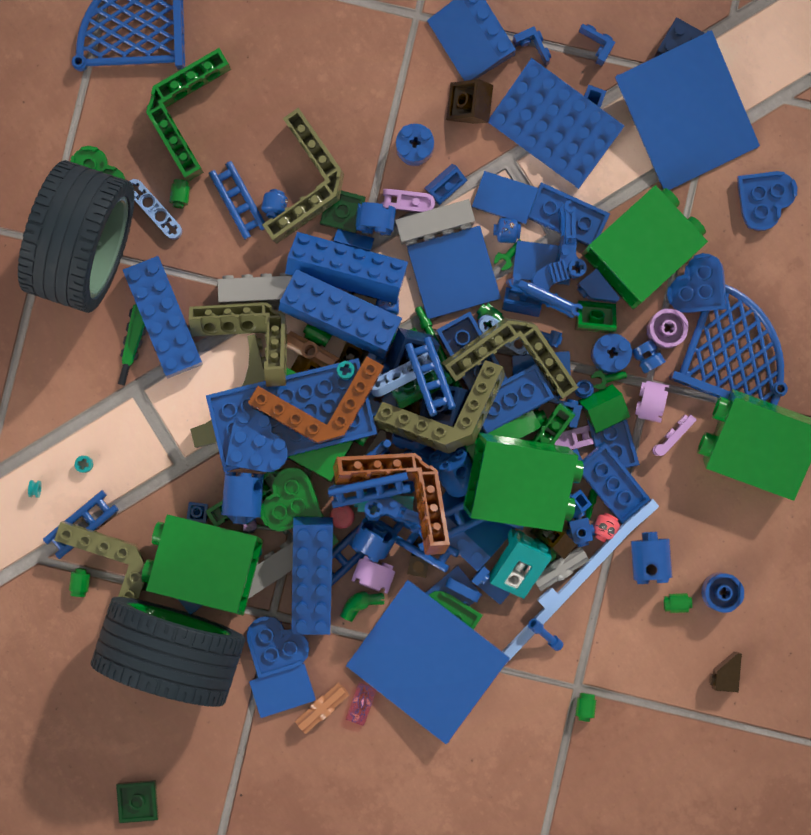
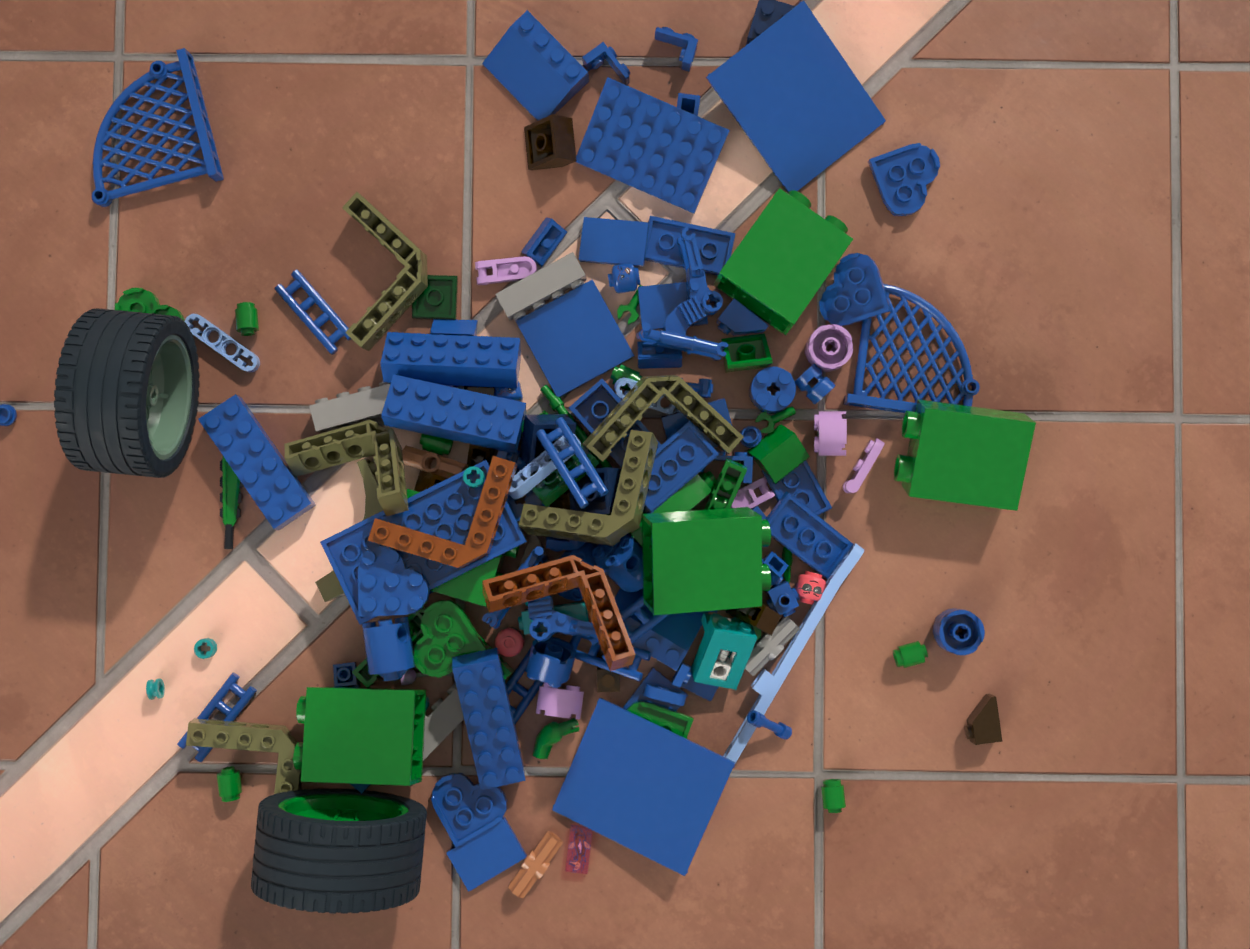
camera: 10 degrees left, 0 degrees up
(172, 90) = (213, 204): green brick -> none
(274, 203) = (354, 305): blue head -> none
(375, 218) = (472, 297): blue brick -> none
(377, 483) = (522, 619): blue bar -> none
(423, 151) = (487, 199): blue brick -> none
(651, 551) = (869, 603): blue cylinder -> none

